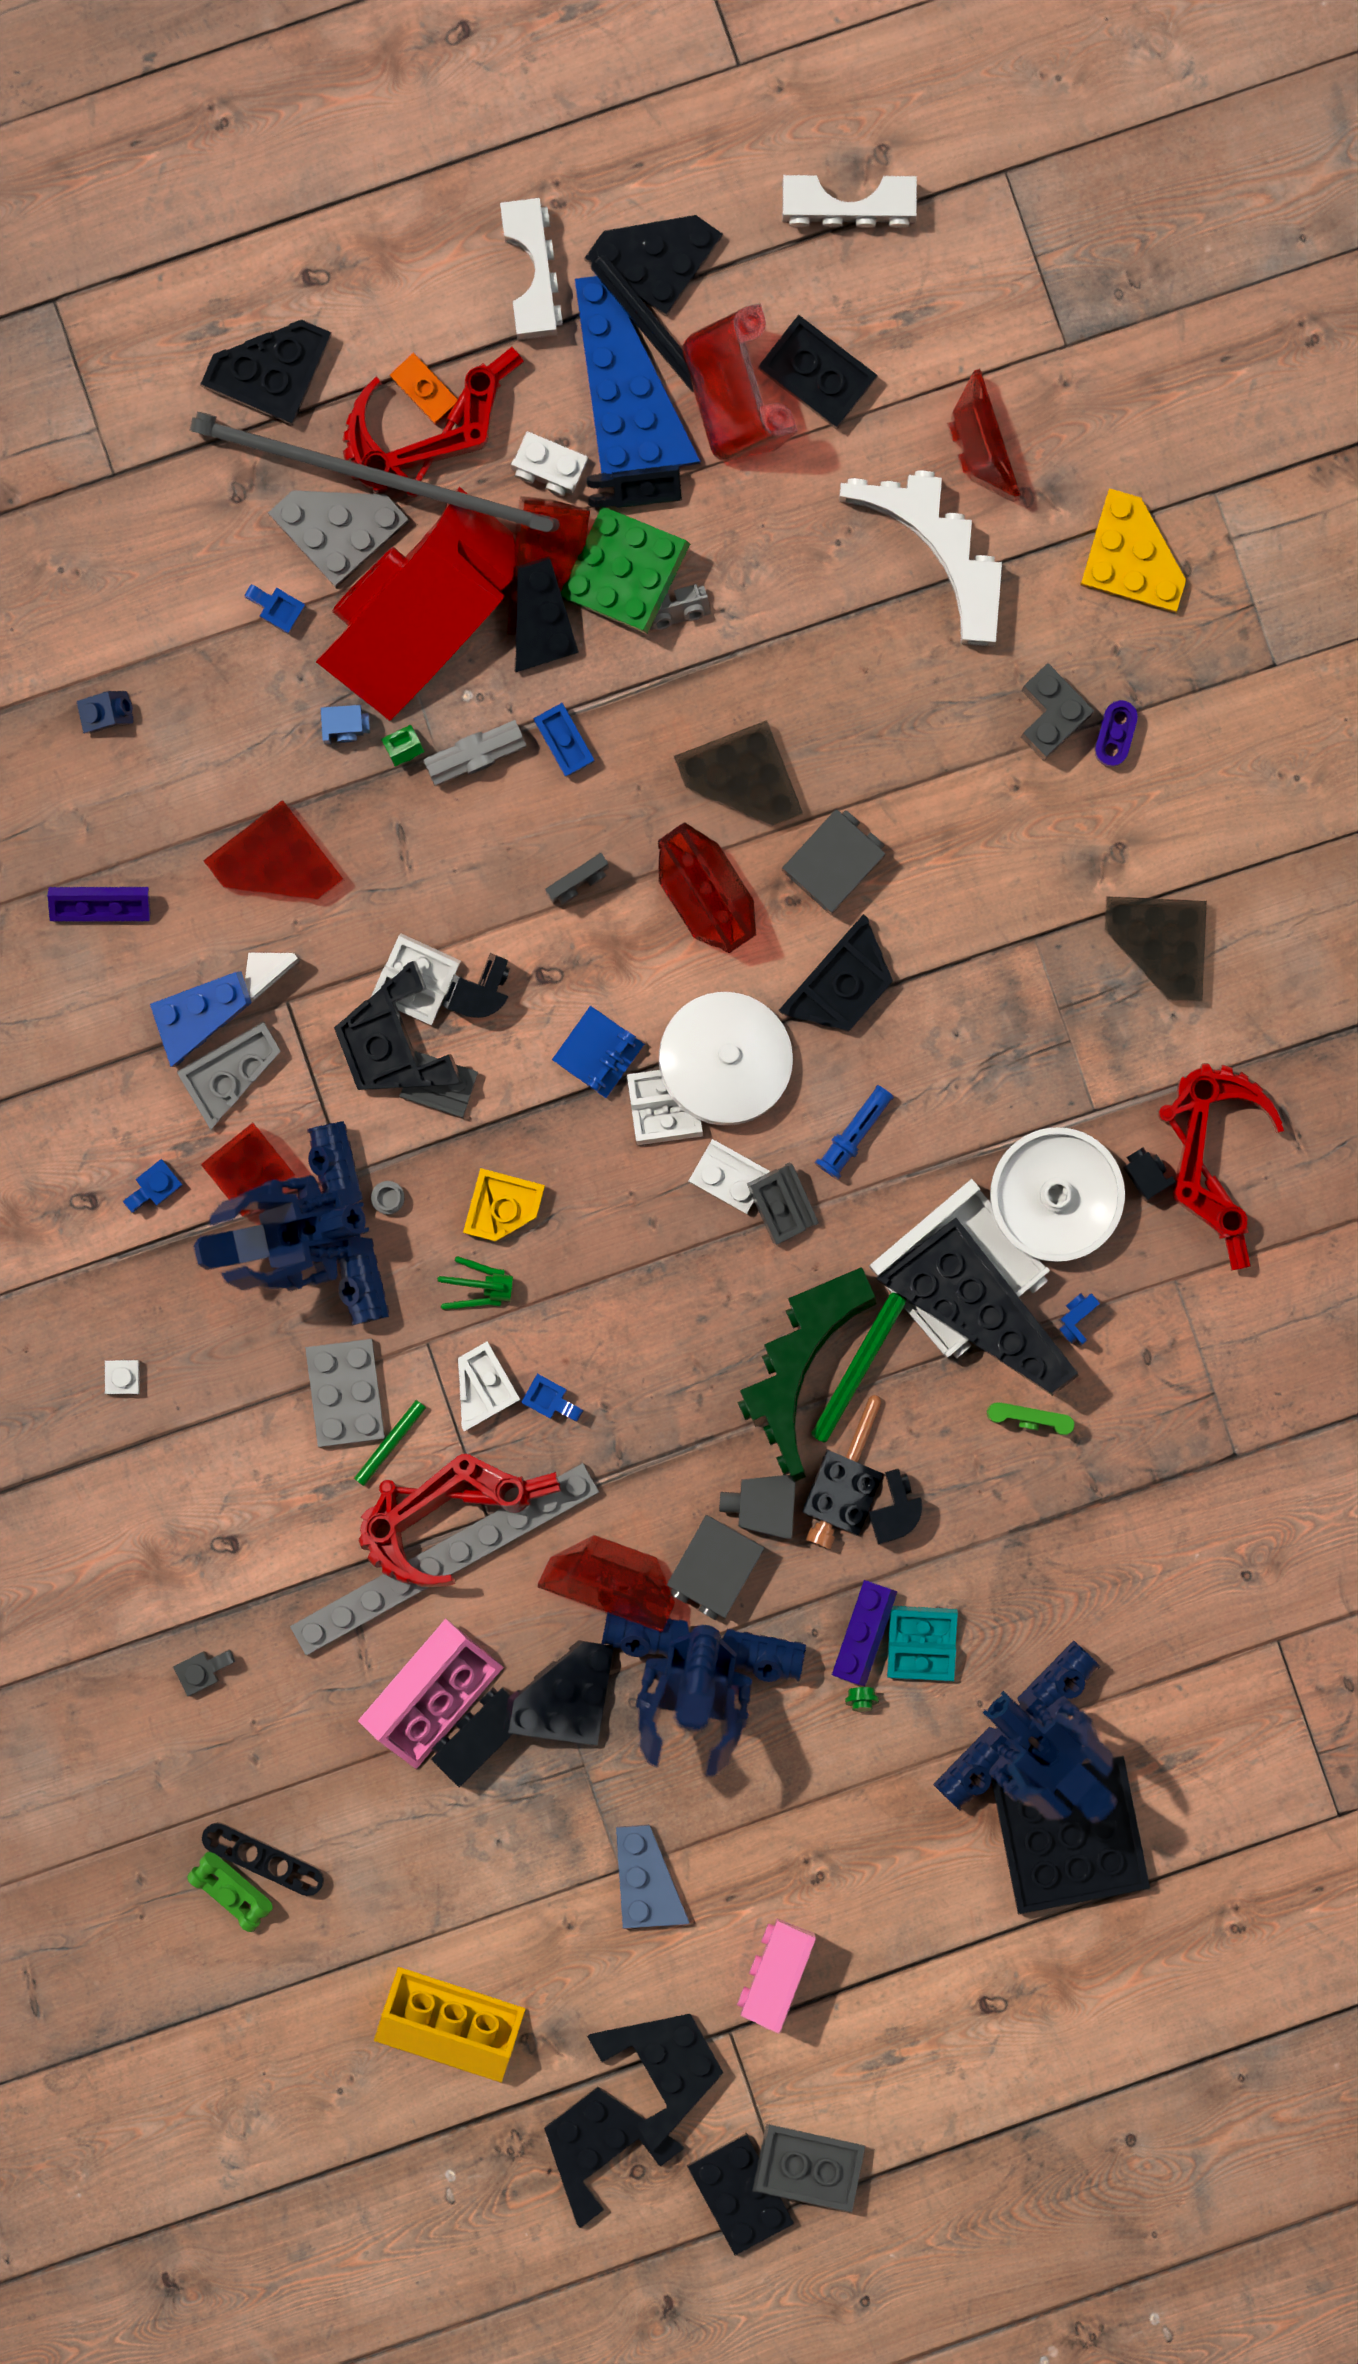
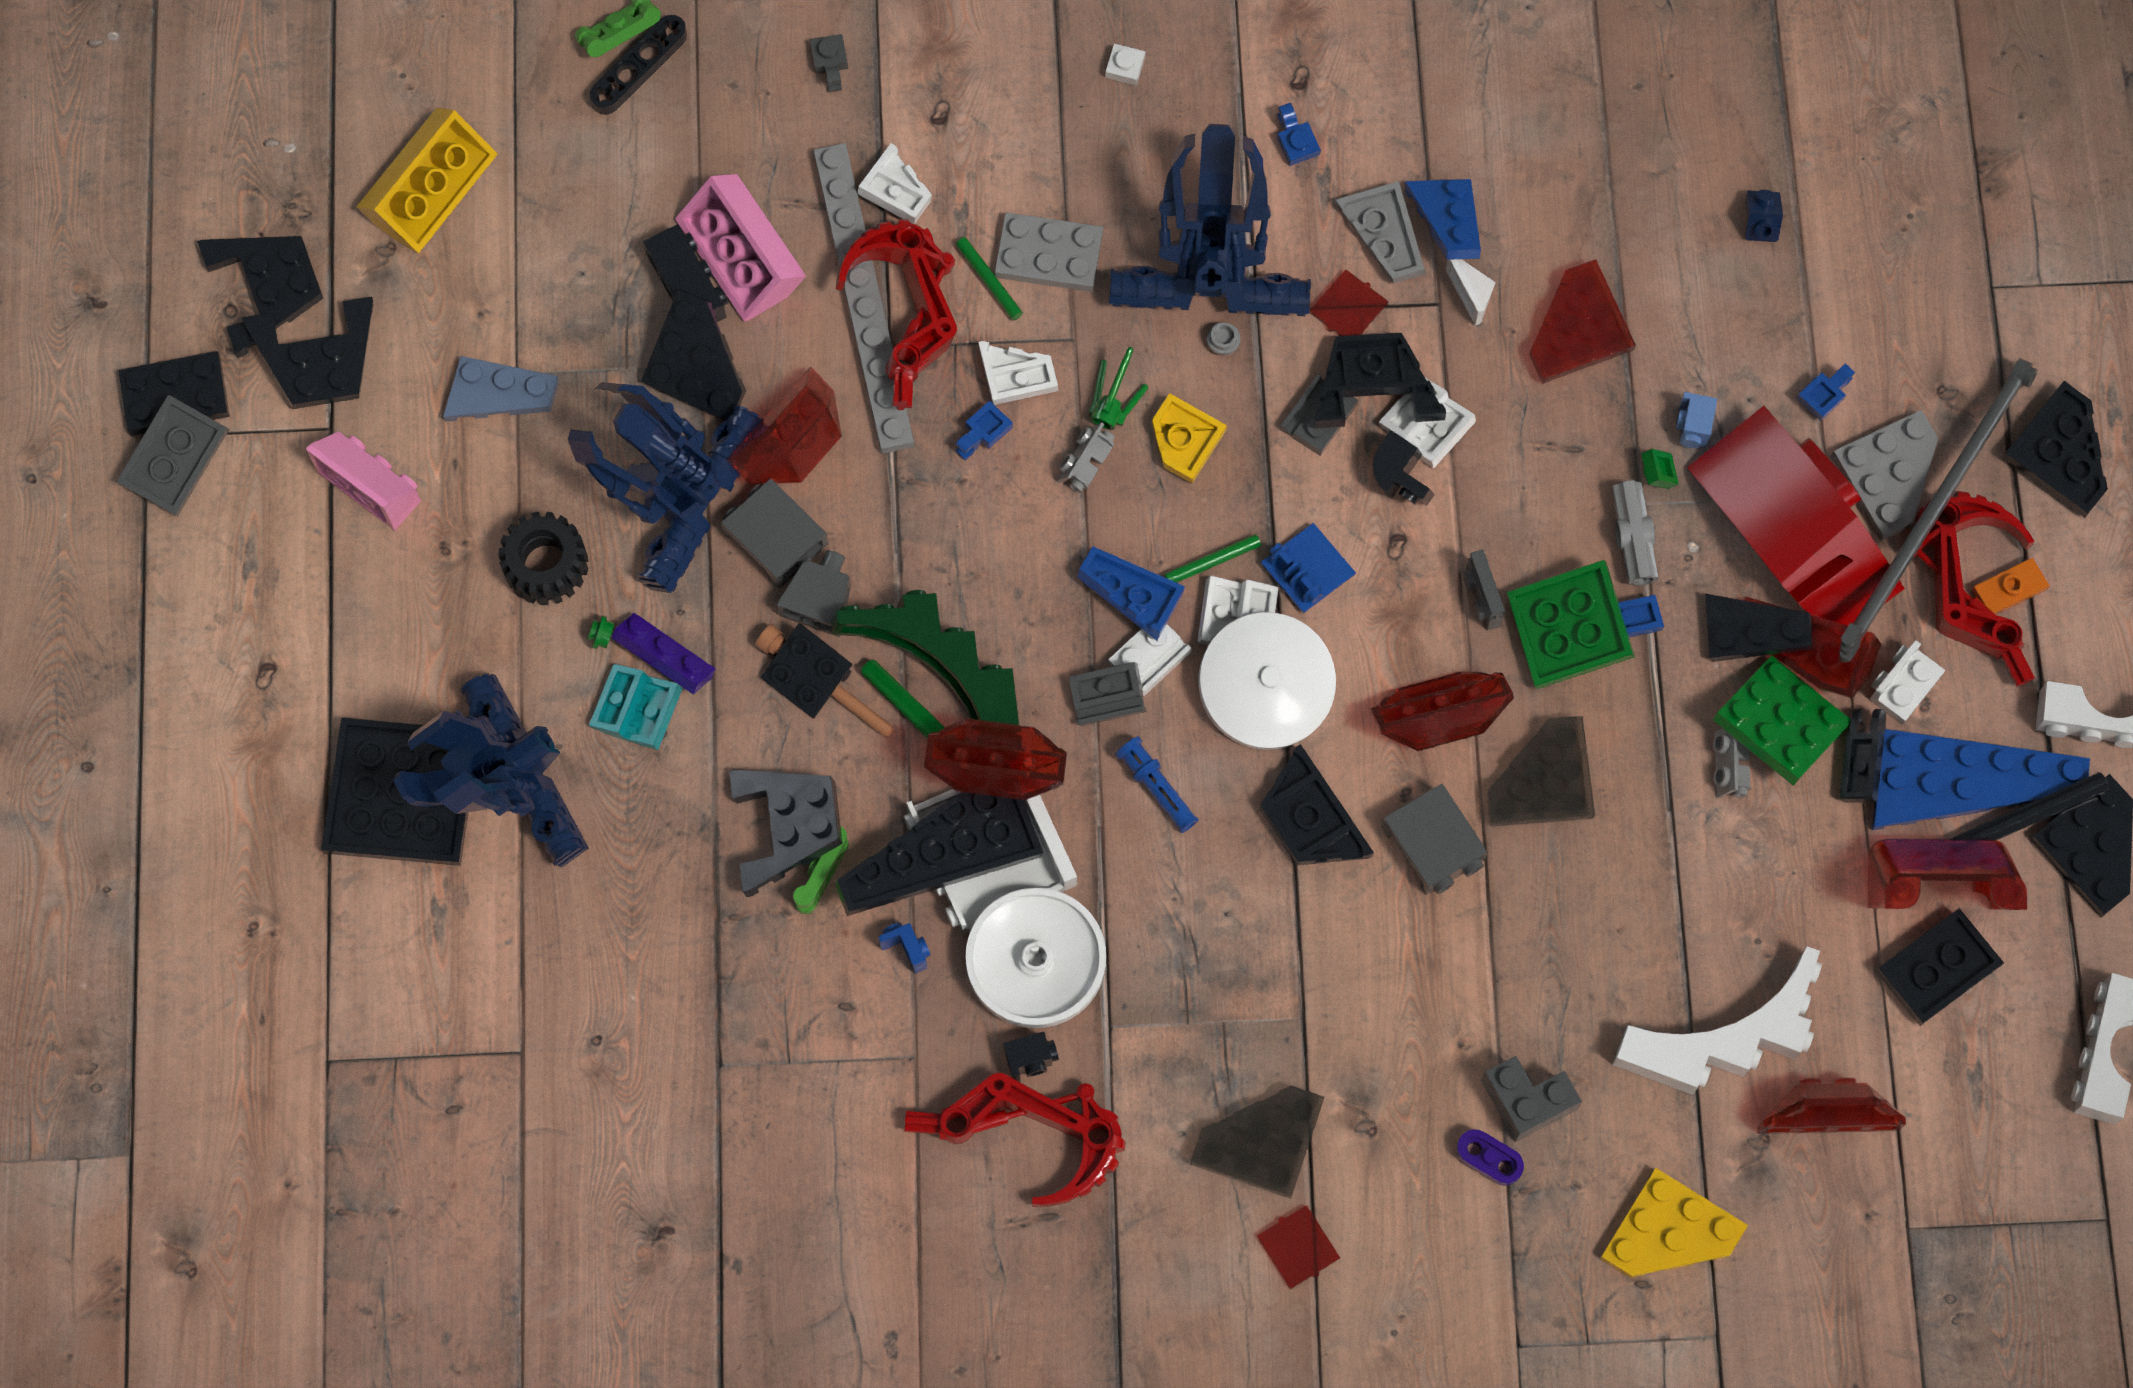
camera: 110 degrees right, 15 degrees down
(99, 903) = (1579, 159): dark purple plate -> none
(246, 1164) = (1295, 219): clear red brick -> none
(317, 1086) = (1348, 306): none -> clear red piece
(322, 1562) = (895, 187): none -> white wing
(564, 1299) = (1077, 466): none -> light grey hinge
(588, 789) = (1571, 624): none -> green plate
(616, 1144) = (1214, 559): none -> green bar
(672, 1210) = (1132, 590): none -> blue wing
(824, 1801) = (536, 533): none -> black tyre
(887, 1283) = (995, 759): none -> clear red wedge
(901, 1517) = (767, 720): black brick -> none
(991, 1450) = (801, 821): none -> black wing
(1246, 883) = (1298, 1247): none -> clear red piece

